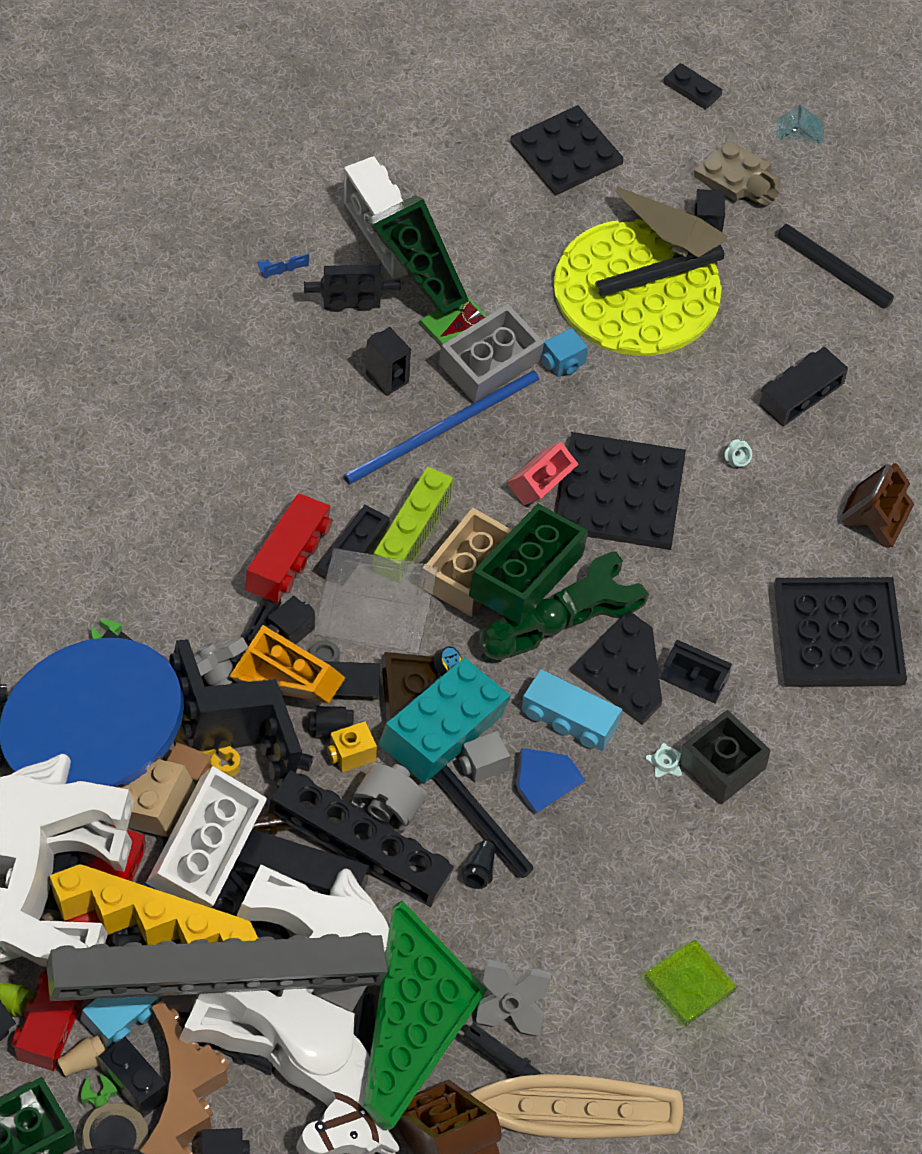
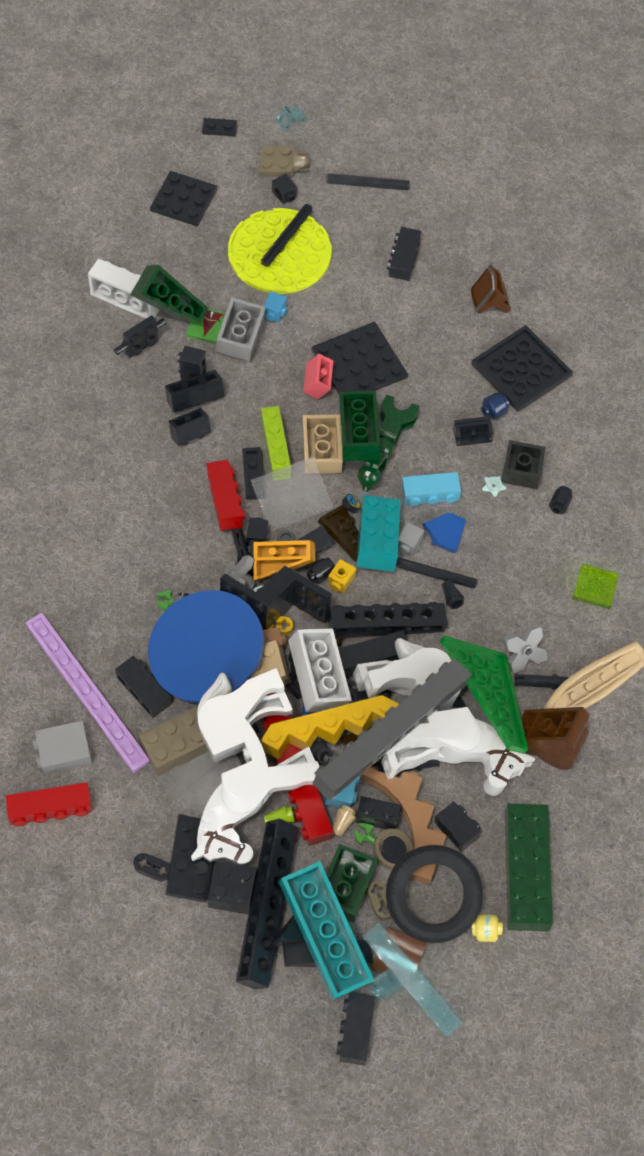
camera: 35 degrees left, 5 degrees up
(269, 269) = (91, 345): blue piece -> none
(318, 436) = (189, 426): none -> black brick
(364, 395) = (194, 391): none -> black brick
(389, 795) = (384, 588): light grey brick -> none
(441, 427) = (242, 387): blue piece -> none
(624, 668) = (436, 451): black plate -> none
(674, 226) = (282, 206): dark tan wedge -> none
(741, 837) = (561, 500): none -> black brick
(744, 453) = (401, 307): light aqua plate -> none
(755, 657) = (495, 405): none -> dark blue head

